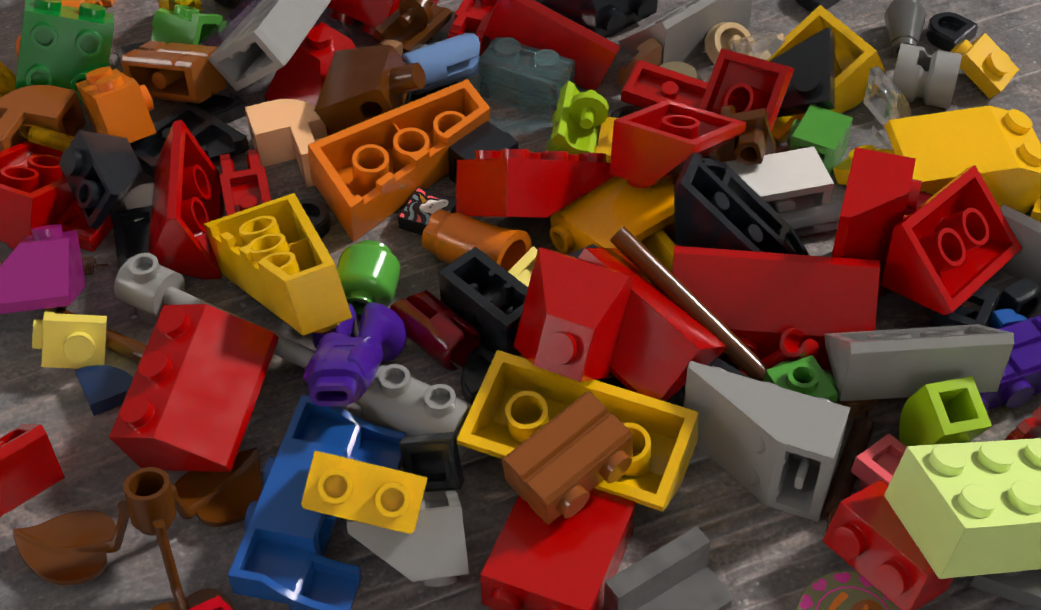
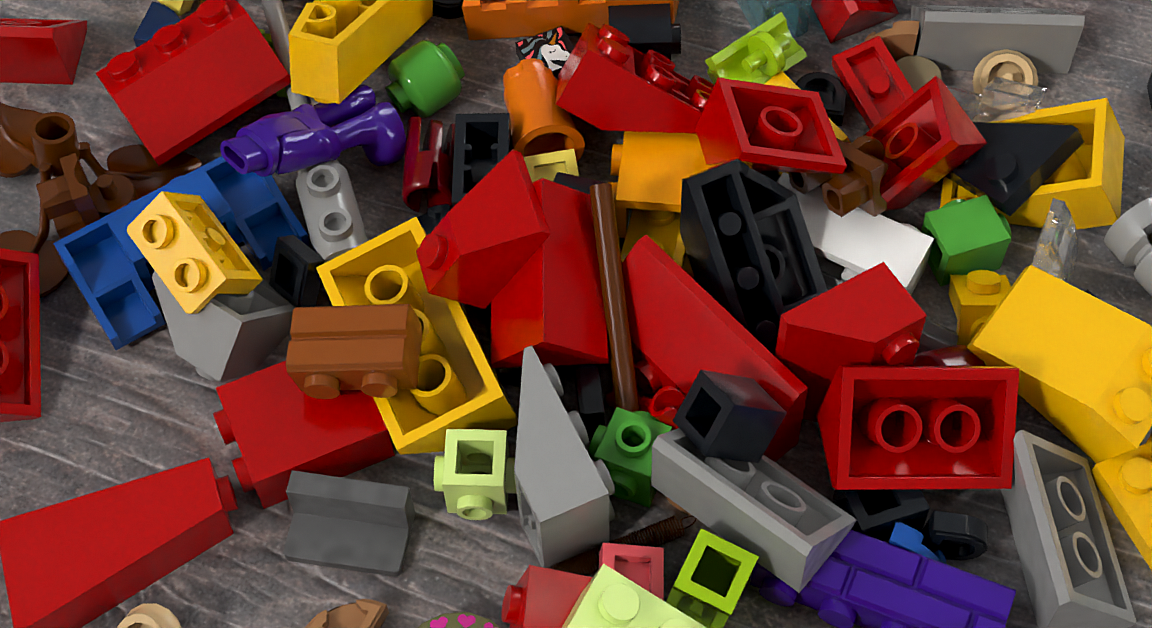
camera: 45 degrees right, 10 degrees up
(210, 534) = (77, 203): none -> reddish brown hips
(721, 484) = (475, 473): none -> yellowish green brick
(860, 309) = (729, 416): none -> black brick

